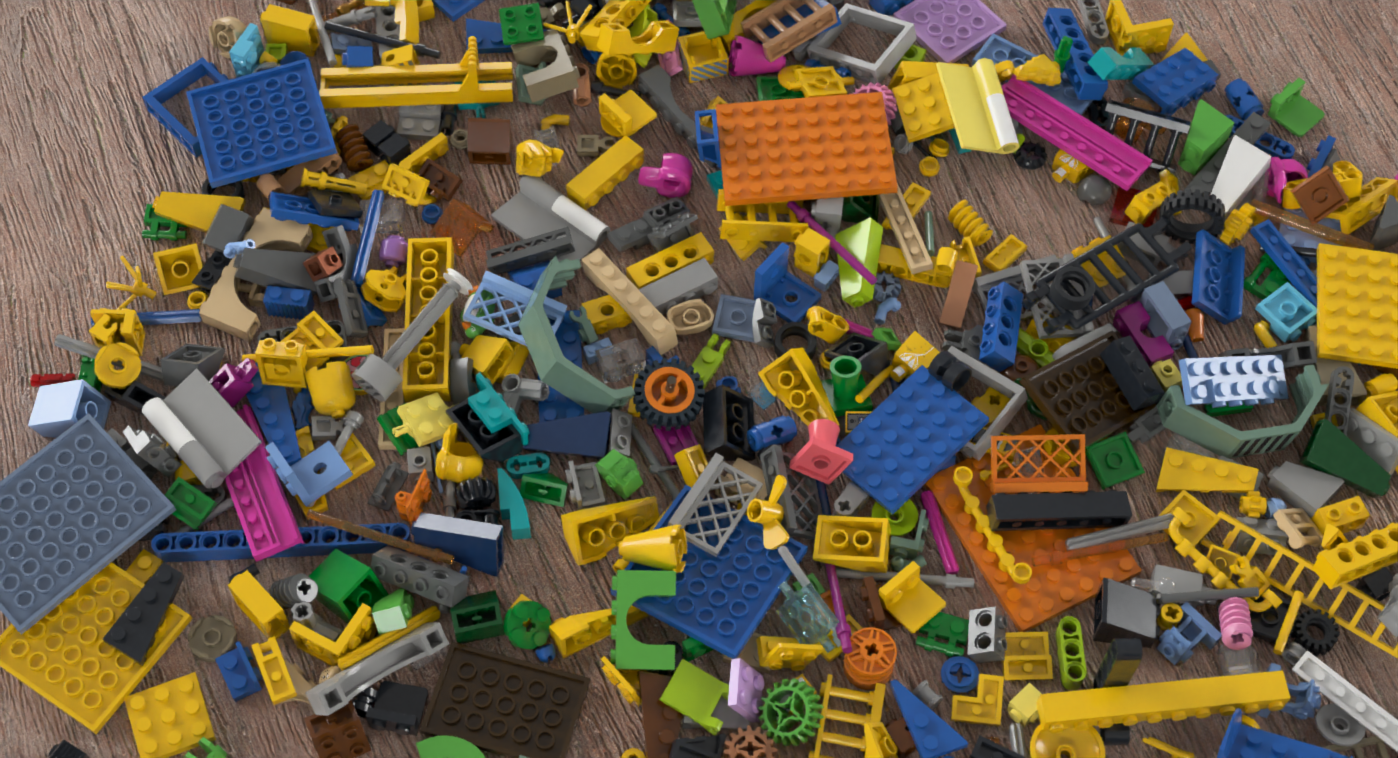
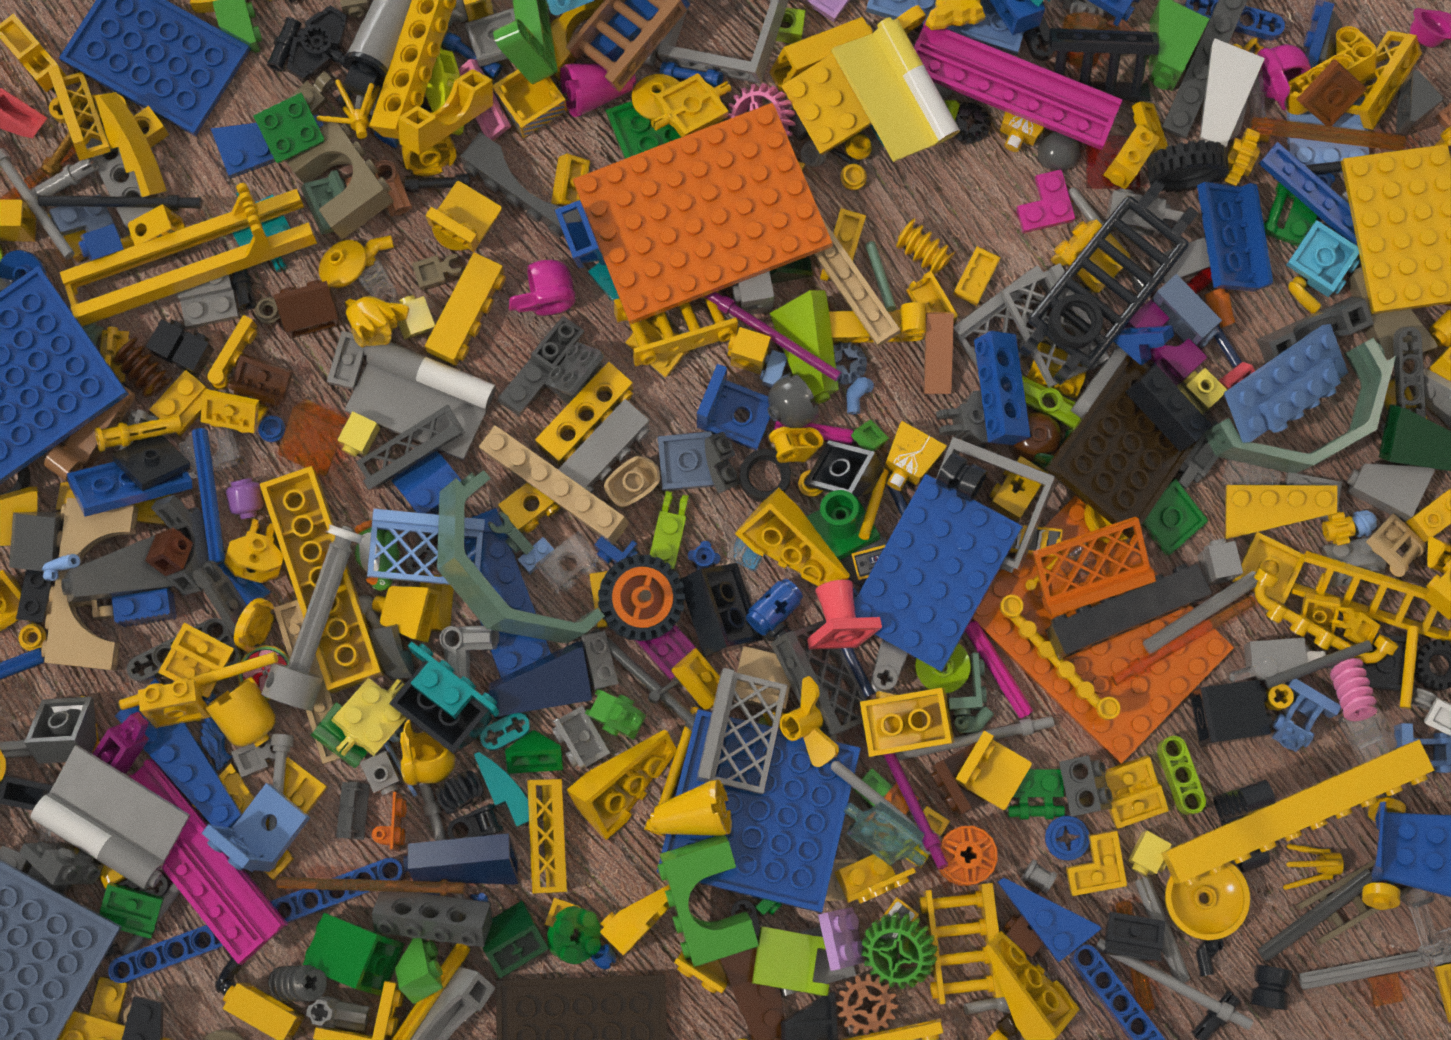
camera: 20 degrees left, 20 degrees up
(365, 330) = (253, 624): none -> yellow tile
(494, 231) = (358, 435): none -> light yellow brick
(504, 186) = (346, 362): none -> light grey plate
(527, 122) = (343, 263): none -> yellow dish
(537, 545) = (553, 836): none -> yellow fence
(566, 169) = (418, 319): none -> light yellow brick
(831, 293) = (791, 402): none -> dark grey cylinder
(1077, 227) = (1053, 206): none -> dark pink plate
(1122, 323) = (1139, 340): none -> blue slope
(1145, 498) = (1220, 562): none -> light grey piece

